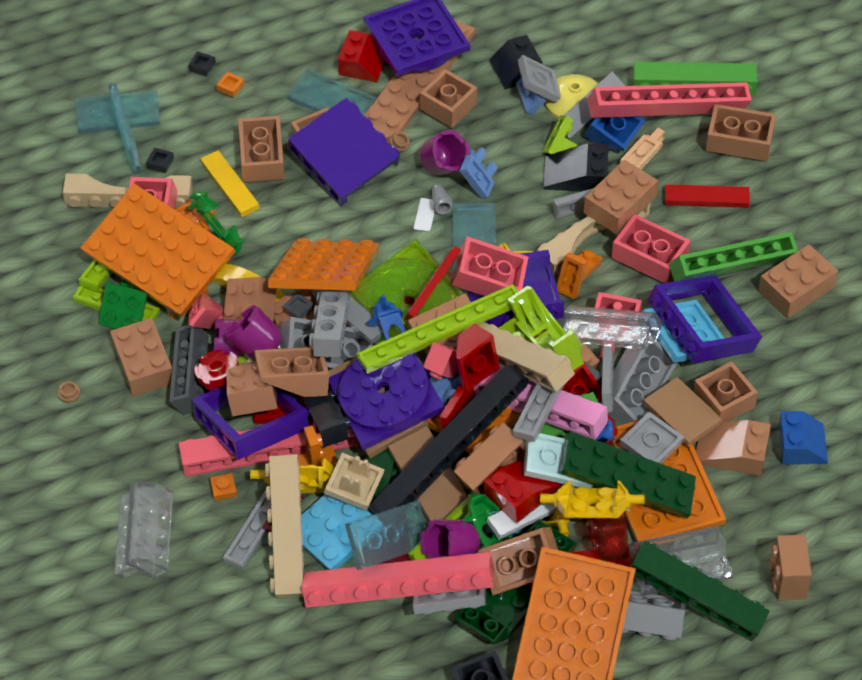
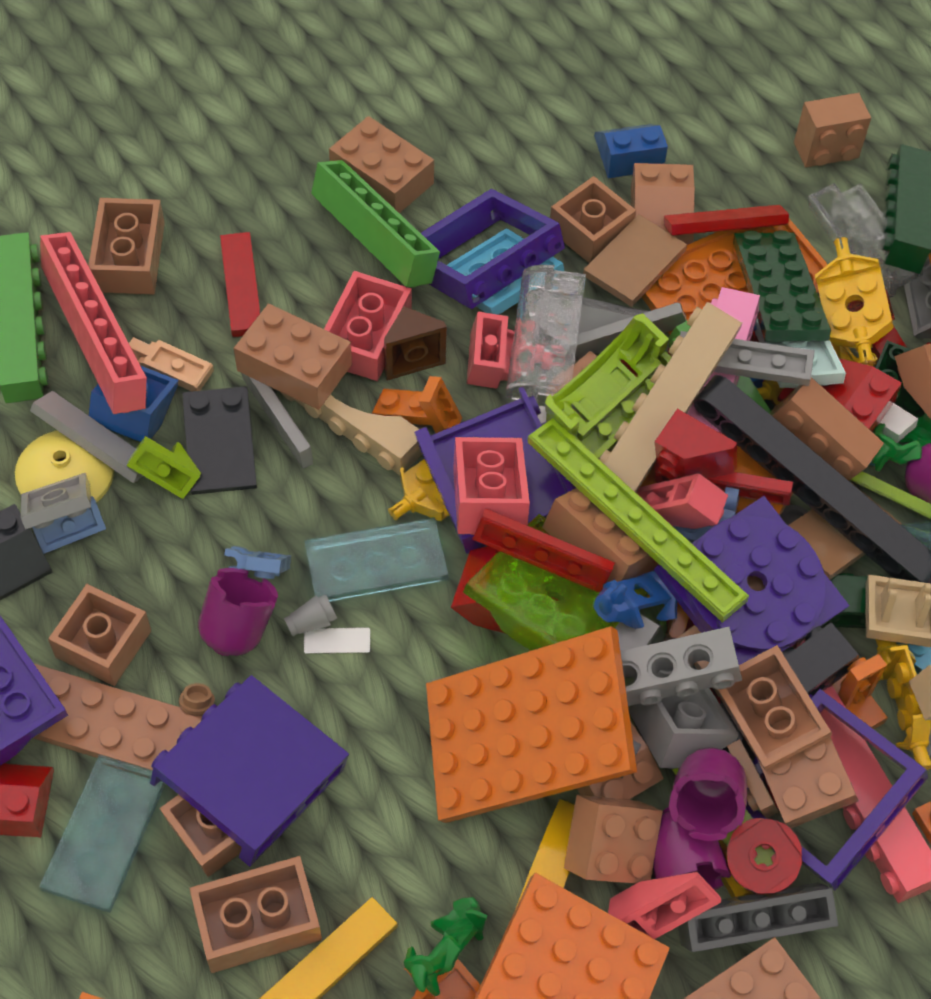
camera: 105 degrees left, 5 degrees up
(629, 267) = (414, 344): none -> reddish brown slope
(652, 439) = (694, 280): light grey plate -> none
(708, 473) = (726, 220): none -> red tile

